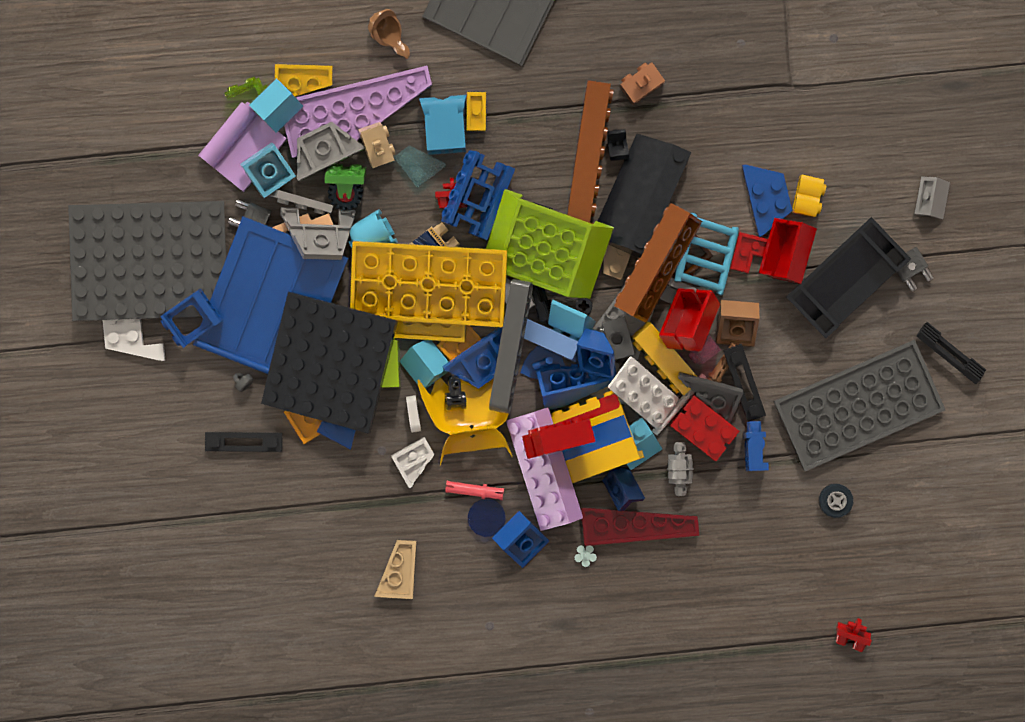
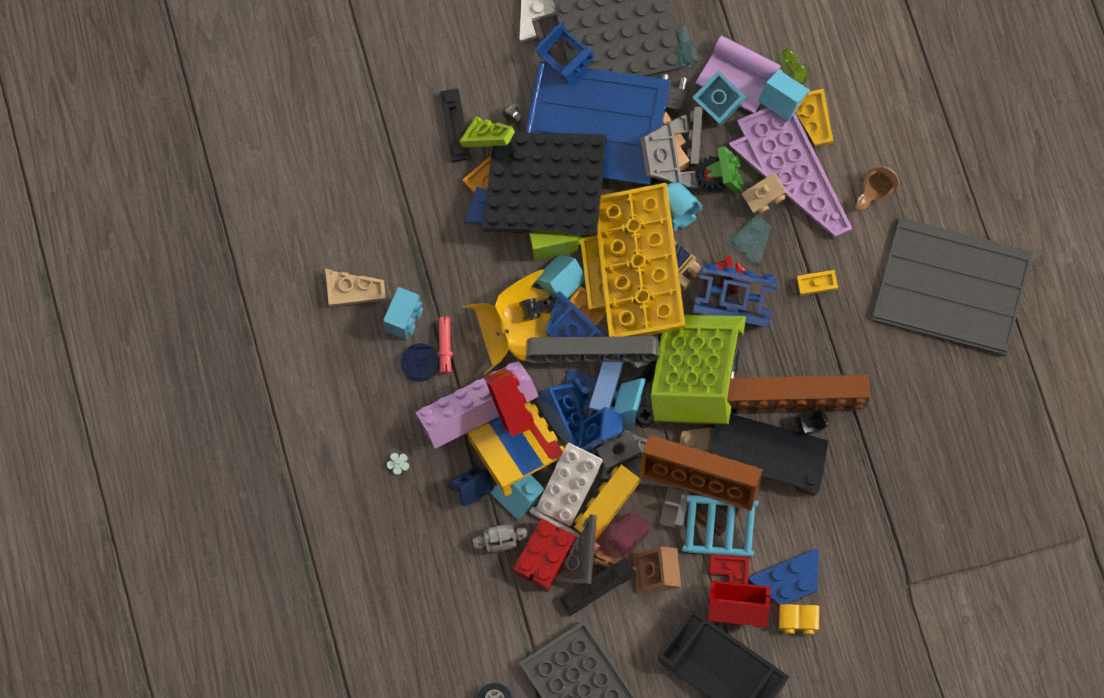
camera: 85 degrees right, 15 degrees down
(205, 193) = (686, 48): none -> clear light blue arm
(264, 412) = (486, 134): none -> lime wing
(323, 149) = (750, 145): light grey wing -> none
(412, 460) = (464, 282): white wing -> none
(413, 413) = (509, 275): white beam -> none
(437, 526) = (403, 313): none -> medium azure brick
(444, 124) = (797, 254): dark azure piece -> none
(520, 539) = (403, 396): blue slope -> none
(616, 526) = (432, 490): dark red wing -> none
(641, 83) = (878, 435): nougat brick -> none
(689, 319) = (650, 514): red piece -> none
(754, 447) = (534, 605): blue hips -> none

